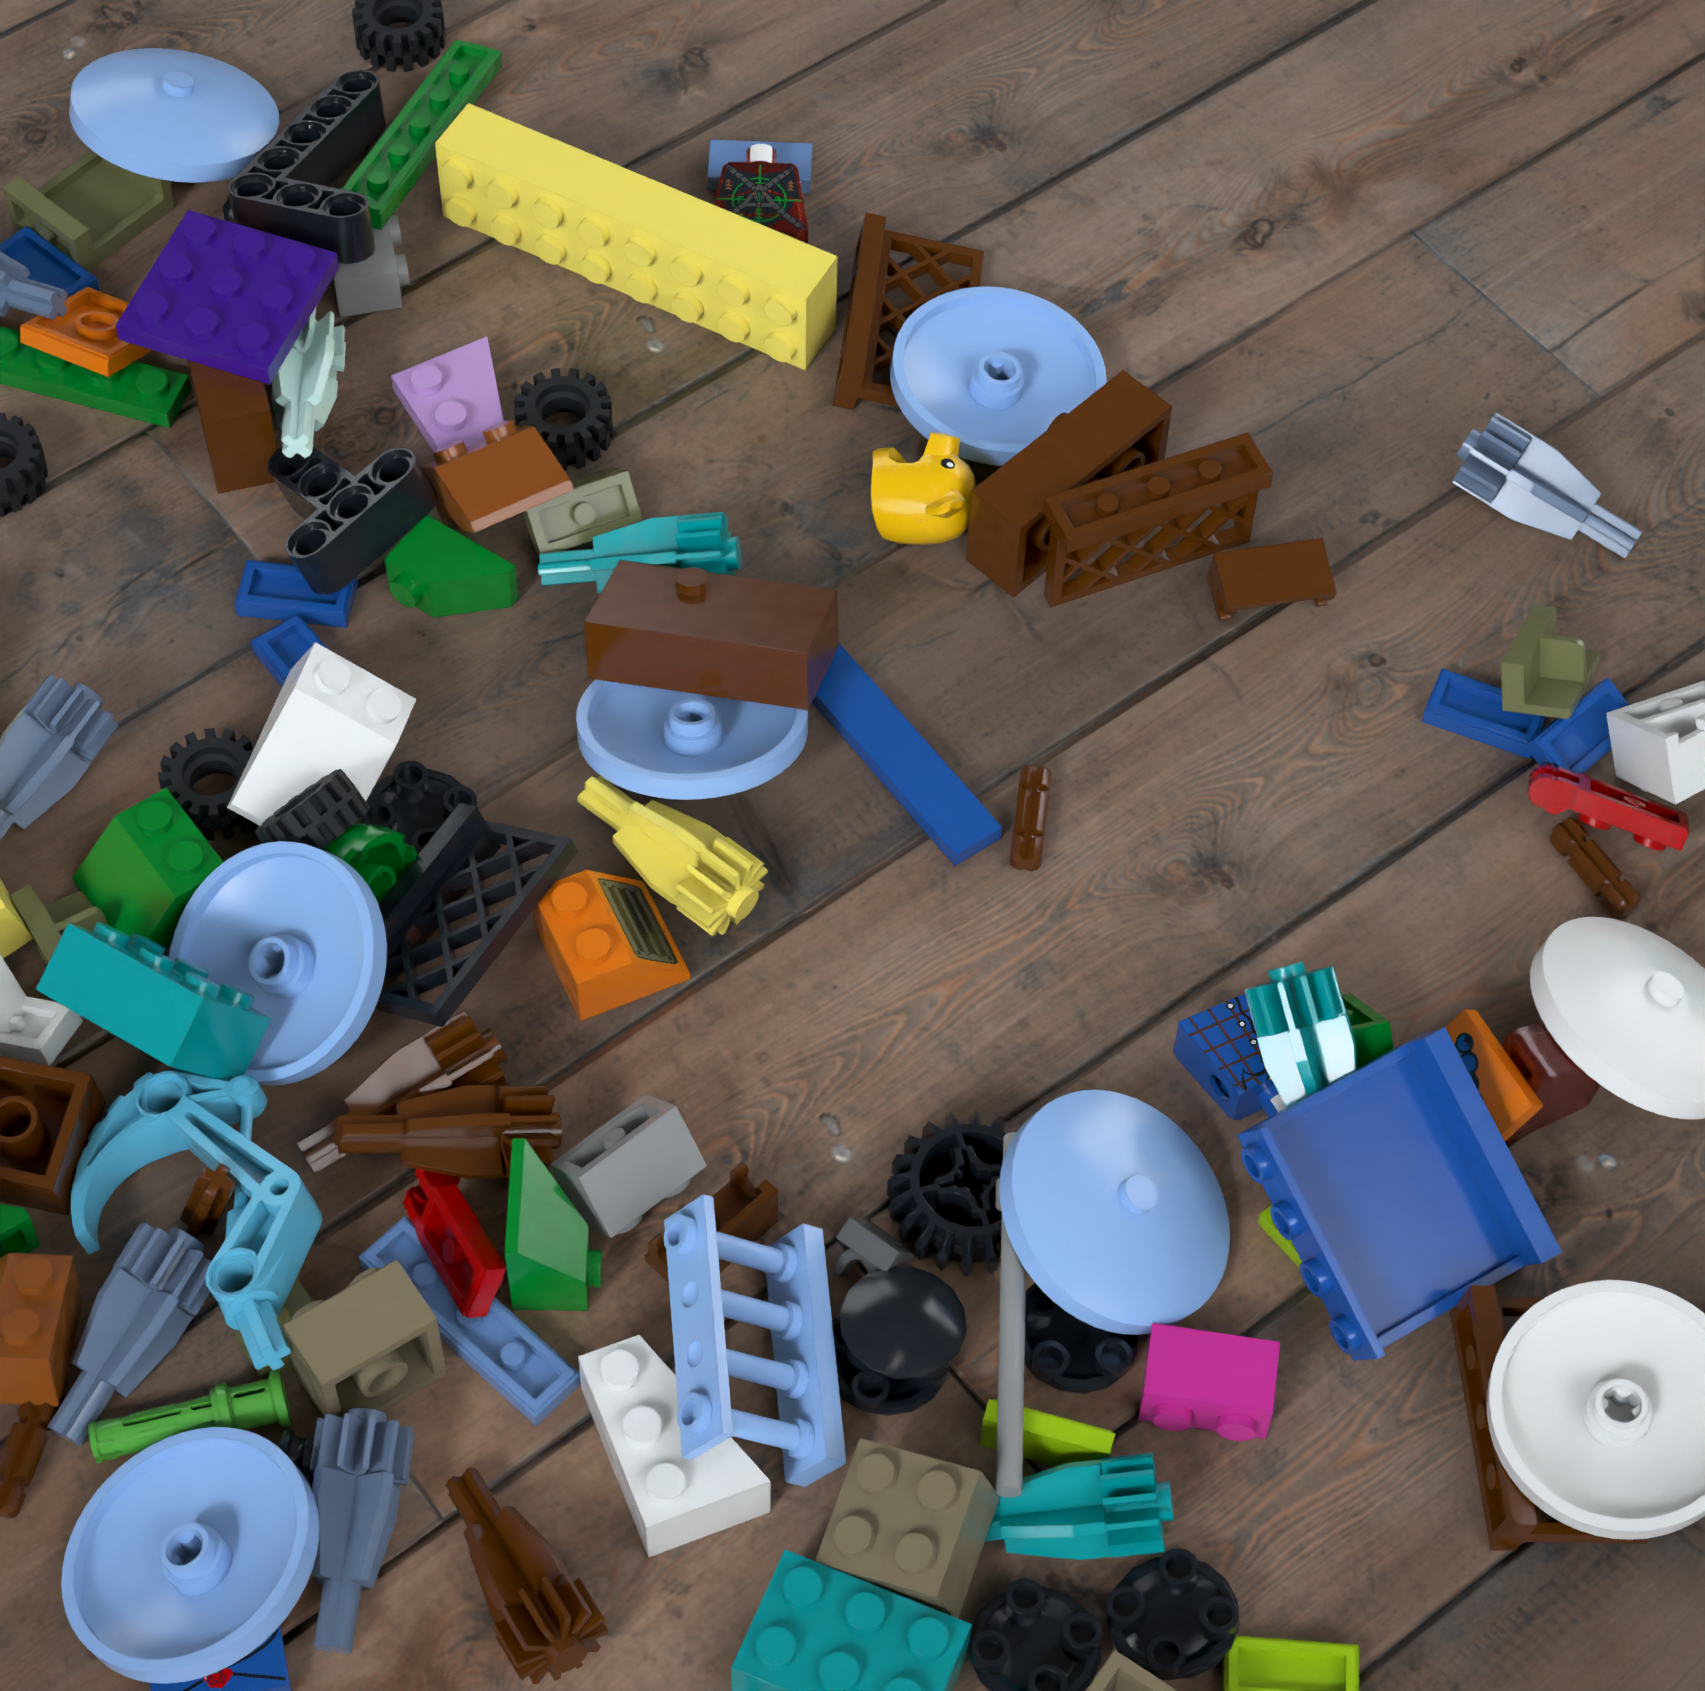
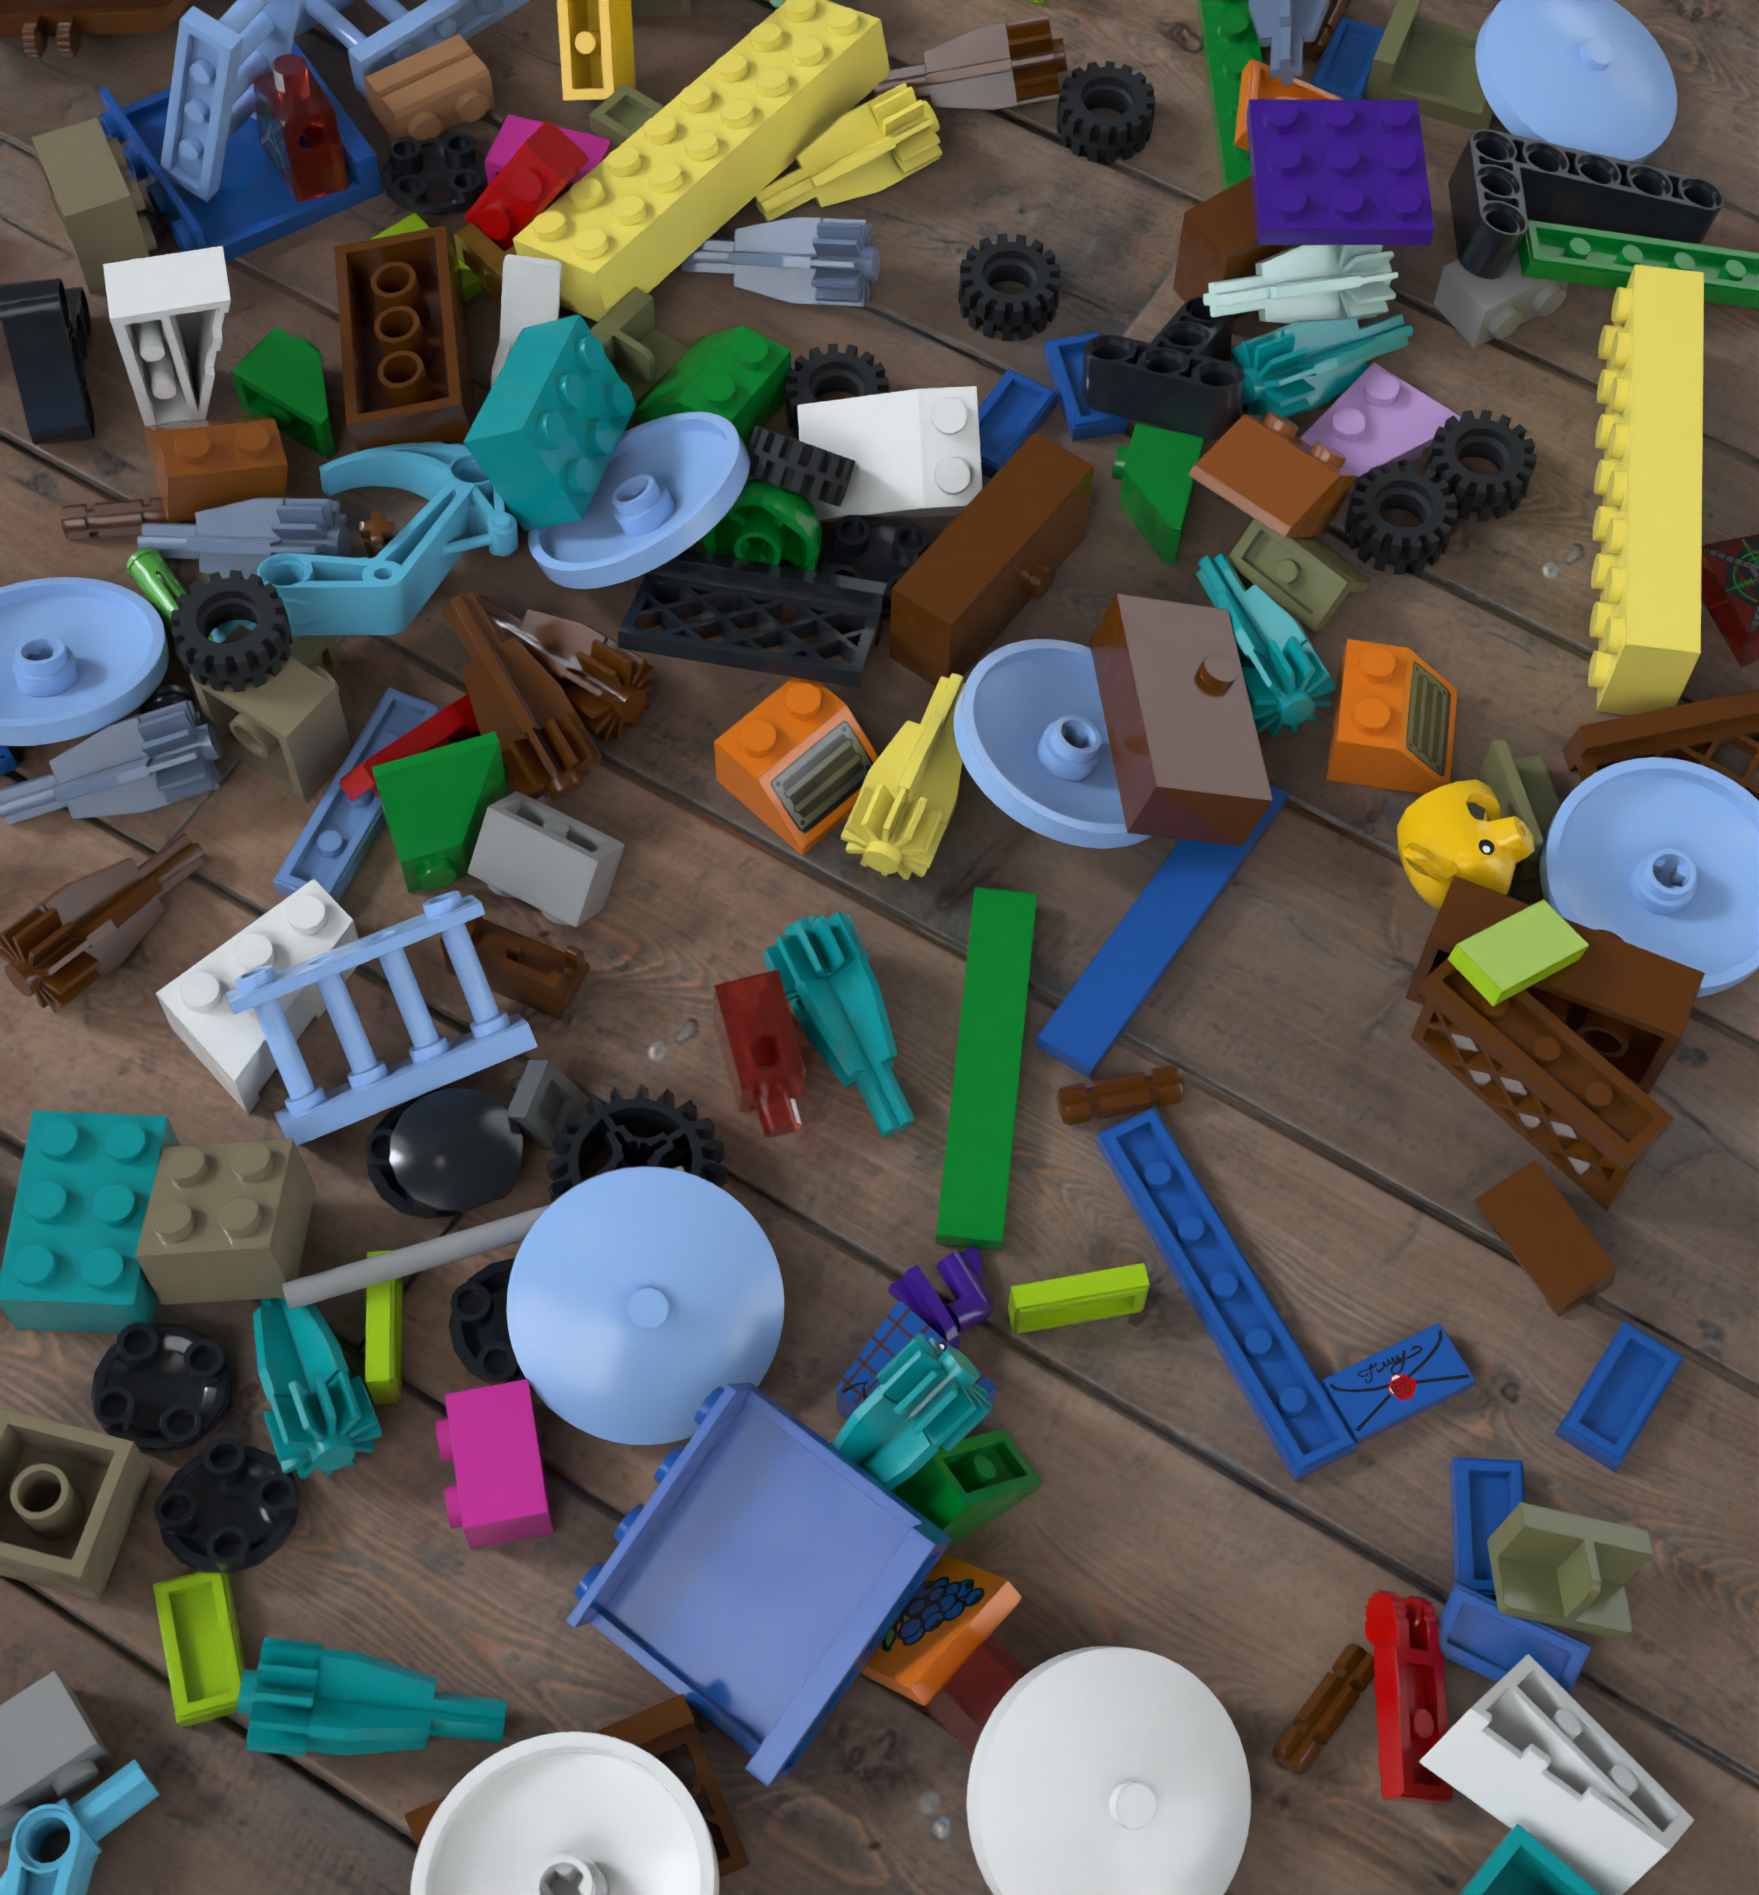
camera: 70 degrees right, 5 degrees up
(154, 583) = (1009, 263): none -> black tyre
(294, 1289) = (228, 601): none -> black tyre
(373, 409) = (1312, 361): none -> teal piece
(480, 713) = (990, 561): none -> reddish brown brick
(531, 323) = (1491, 442): none -> black tyre
(766, 505) = (1391, 720): none -> orange slope
(857, 439) = (1523, 792): none -> olive panel
(878, 984) = (842, 1010): none -> teal piece
(897, 1054) = (759, 1031): none -> clear red torso
(964, 903) = (987, 1070): none -> green tile
(1072, 468) = (1518, 952): none -> lime tile
(1162, 1018) = (964, 1278): none -> dark purple piece
(1209, 907) = (1078, 1298): none -> lime tile
(1227, 811) = (1226, 1295): none -> blue tile
(1350, 726) = (1398, 1383): none -> blue tile
(1381, 1584) = (352, 1704): none -> teal piece
(1407, 591) = (1619, 1396): none -> blue tile

